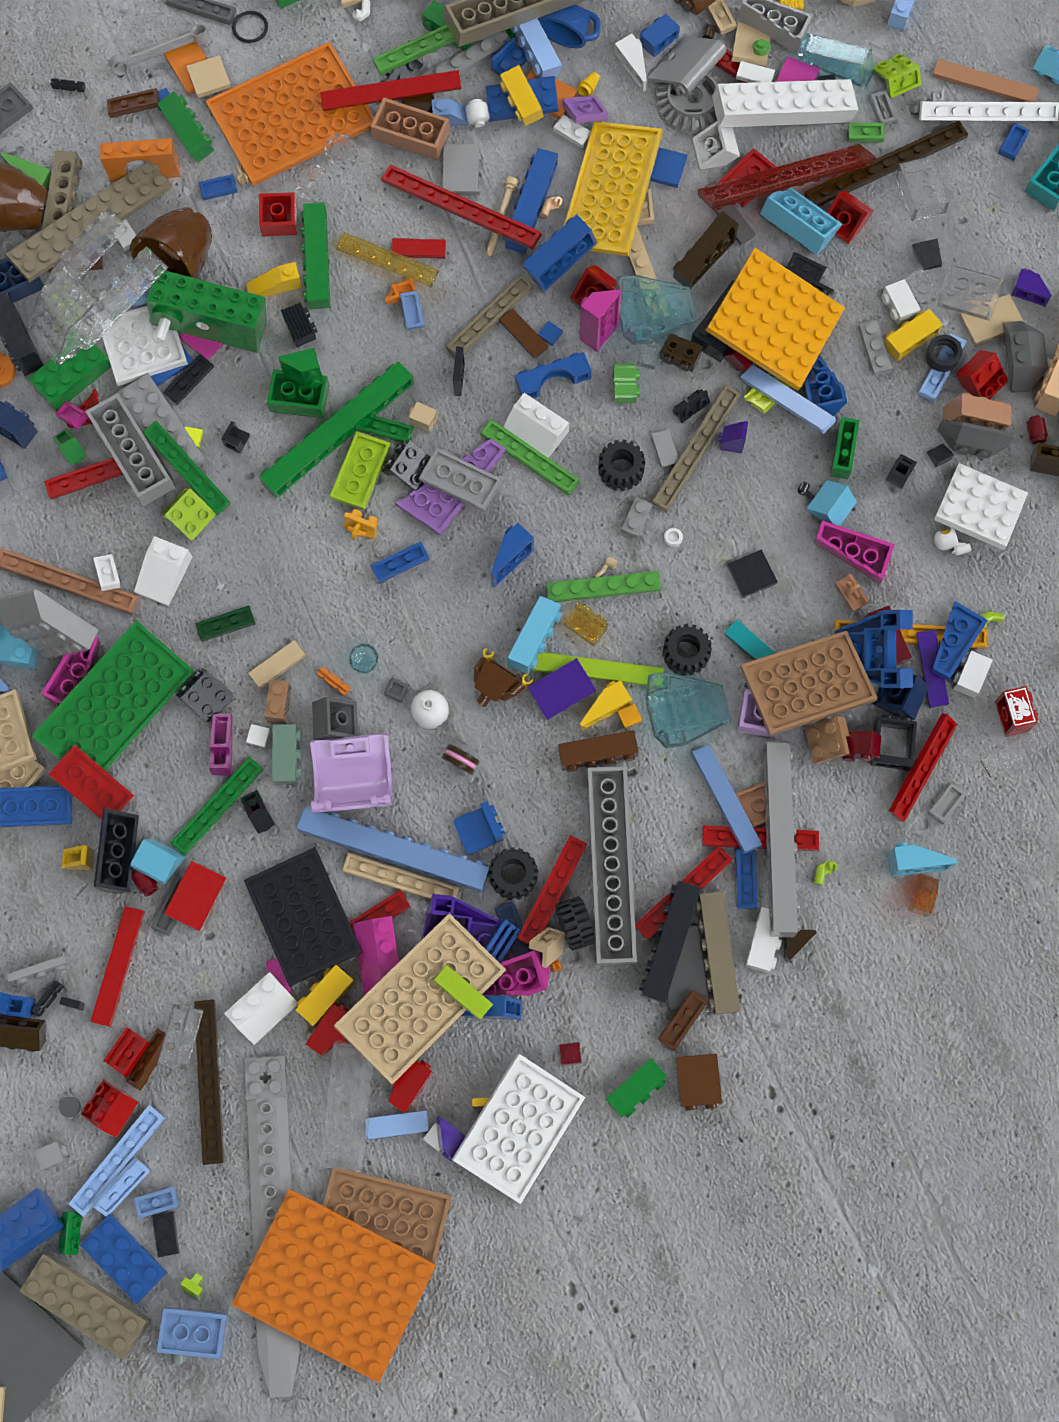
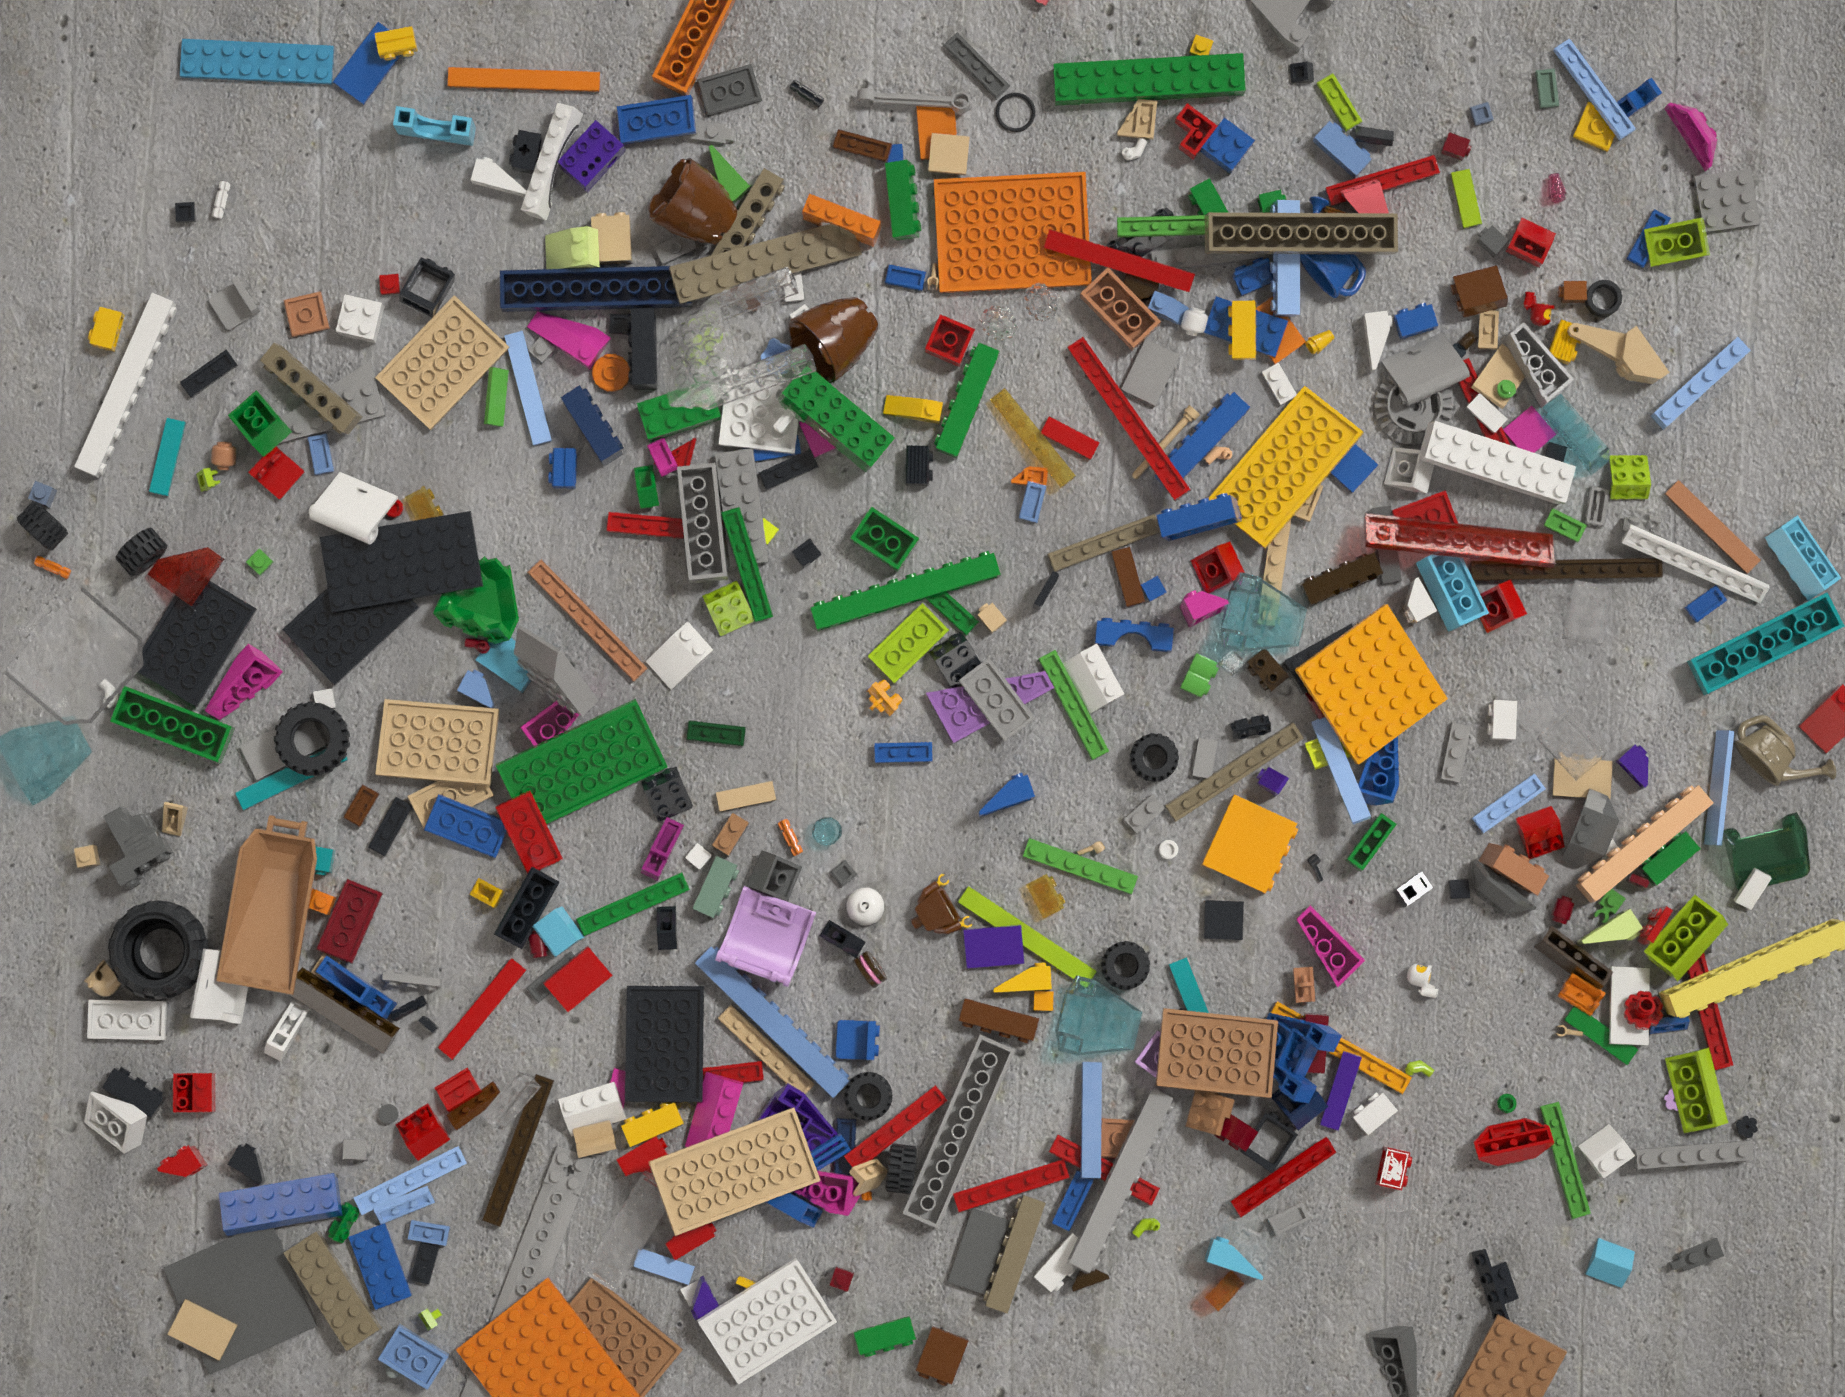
camera: 20 degrees right, 10 degrees up
(106, 572) = (628, 632): white plate -> none
(276, 1035) = (594, 1138): none -> tan panel
(302, 368) = (899, 526): green slope -> none
(422, 745) = (842, 939): none -> black slope
(463, 992) = (773, 1184): lime tile -> none
(534, 634) = (992, 884): medium azure brick -> none
(585, 109) = (1300, 370): medium lavender plate -> none
(670, 941) = (976, 1225): black brick -> none
(682, 1020) = (954, 1296): reddish brown tile -> none
(741, 498) = (1250, 844): none -> light orange panel
(780, 239) = (1418, 603): none -> white slope
(809, 271) = (1429, 645): black bracket -> none
(832, 503) = (1331, 889): medium azure slope -> none
(912, 334) = (1496, 758): yellow brick -> none
(928, 253) = (1555, 683): black slope -> none
(949, 341) = (1510, 807): black tyre -> none
(957, 639) = (1381, 1072): blue wing -> none
(981, 506) = (1467, 960): white plate -> none

